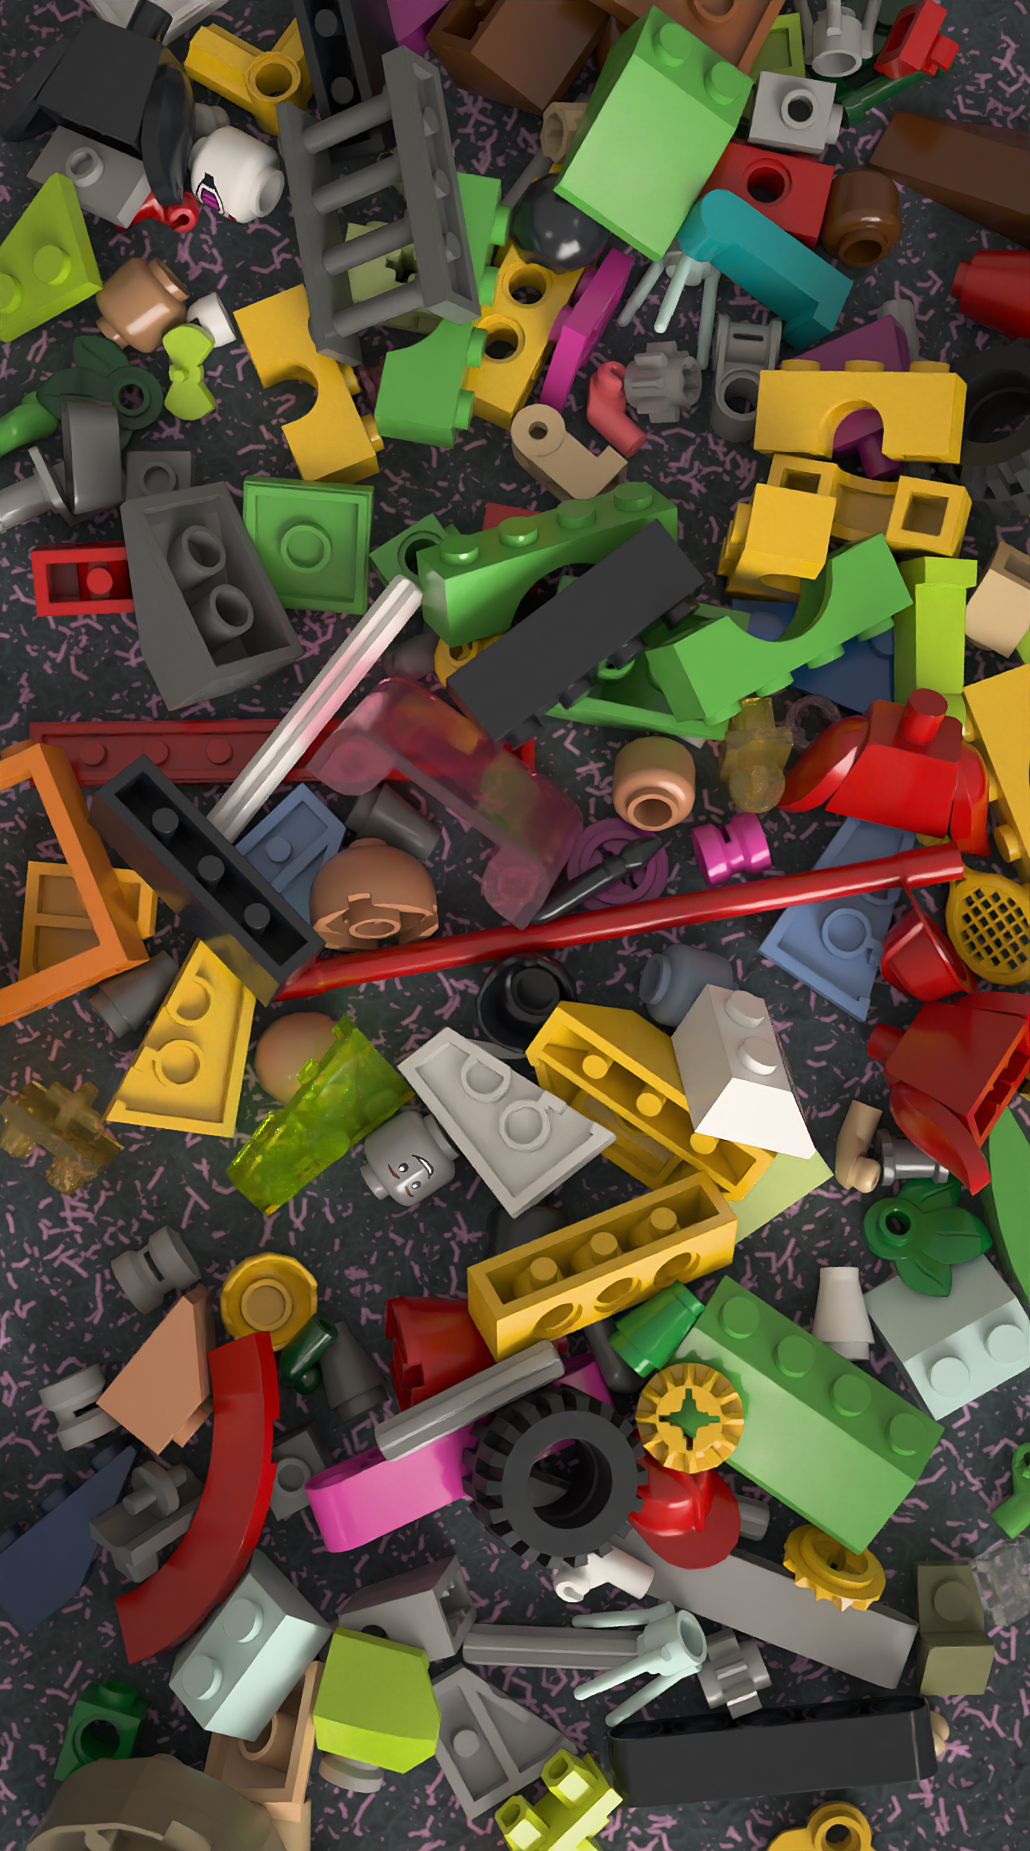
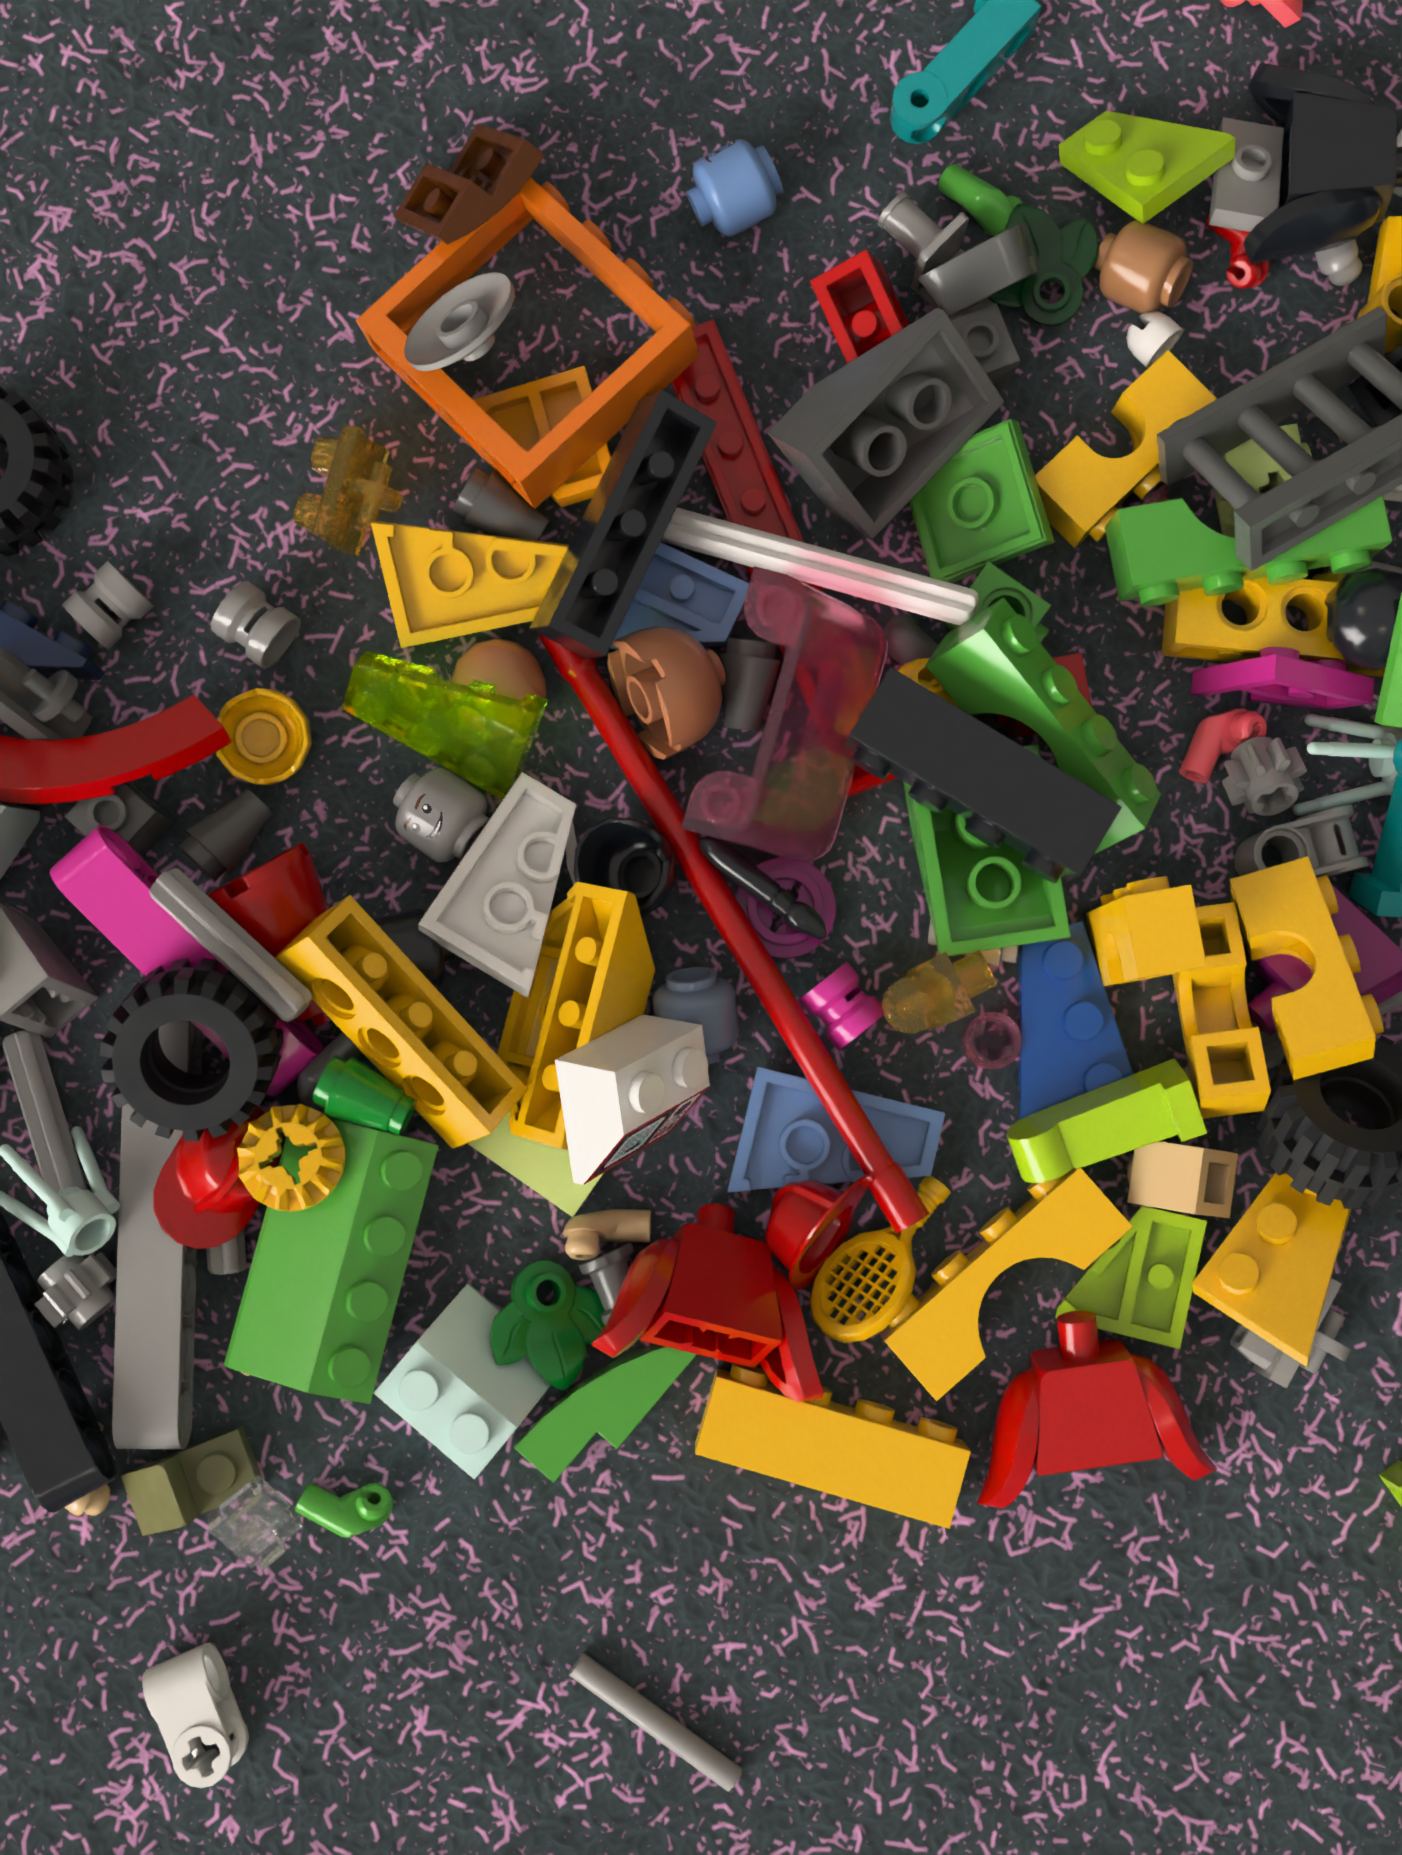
camera: 75 degrees right, 0 degrees up
(169, 1378) = (152, 667): nougat slope -> none
(188, 348) = (1117, 324): lime piece -> none
(235, 174) = (1301, 303): white head -> none
(298, 1360) = (224, 783): dark green arm -> none
(559, 459) = (1151, 706): tan leg -> none
(616, 1568) = (131, 1140): white arm -> none
(653, 783) = (876, 909): nougat head -> none
(719, 663) = (1006, 919): bright green arch -> none
(842, 1314) = (444, 1272): white cone -> none
(854, 1582) = (201, 1375): yellow gear -> none
(897, 771) = (975, 1135): red torso -> none

